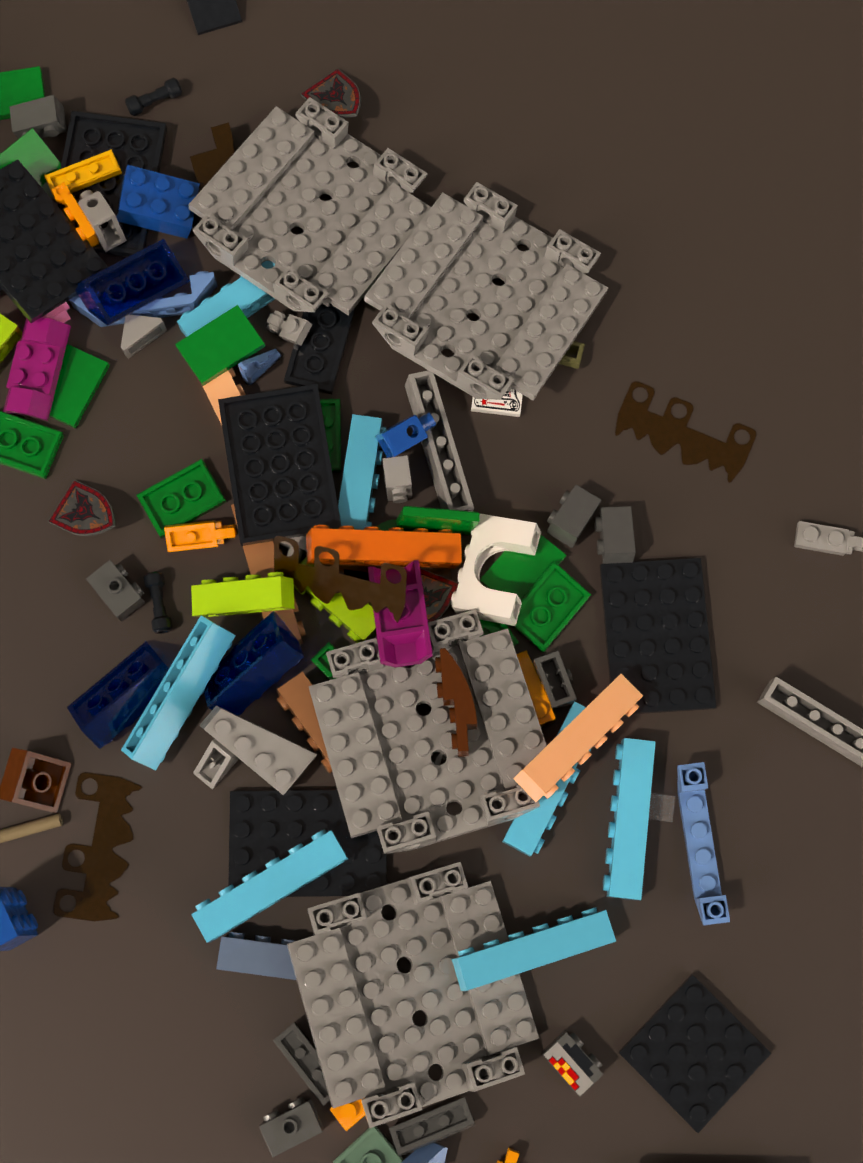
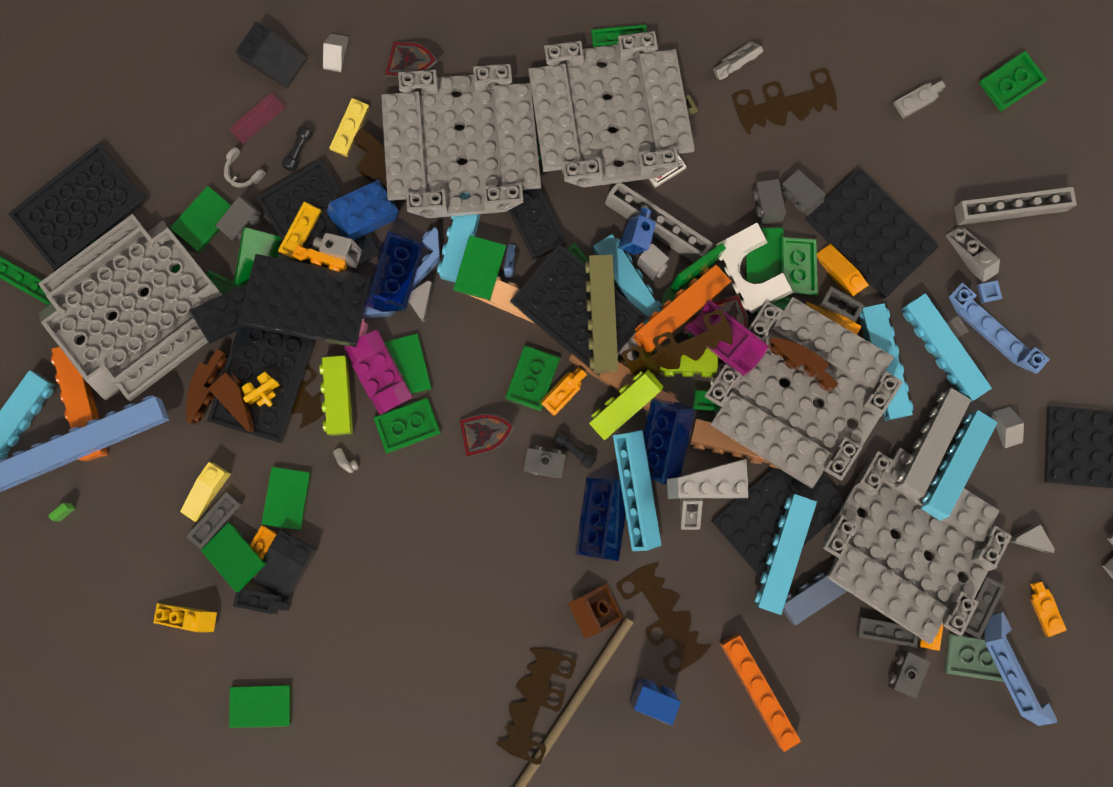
camera: 45 degrees left, 5 degrees up
(86, 57) = (231, 157): none -> light grey piece
(121, 1008) = (760, 692): none -> orange brick
(143, 40) = (256, 118): none -> clear pink tile
(232, 110) = (349, 127): none -> light yellow plate
(271, 34) = (334, 52): none -> slope
(288, 328) = (511, 224): light grey plate -> none
(293, 485) = (602, 314): none -> olive brick
(526, 904) = (932, 444): none -> light grey brick
(550, 1099) = (1034, 538): none -> light grey slope
(551, 222) = (609, 36): none -> green tile
(572, 1063) = (1028, 509): brick -> none
(578, 738) = (889, 326): light nougat brick -> none
(588, 649) = (841, 271): none -> light orange slope
(628, 959) = (1009, 427): none -> light grey slope
(666, 349) = (737, 59): none -> light grey hinge
(730, 799) = (989, 292): none -> medium blue plate
(747, 746) = (974, 254): none -> light grey slope

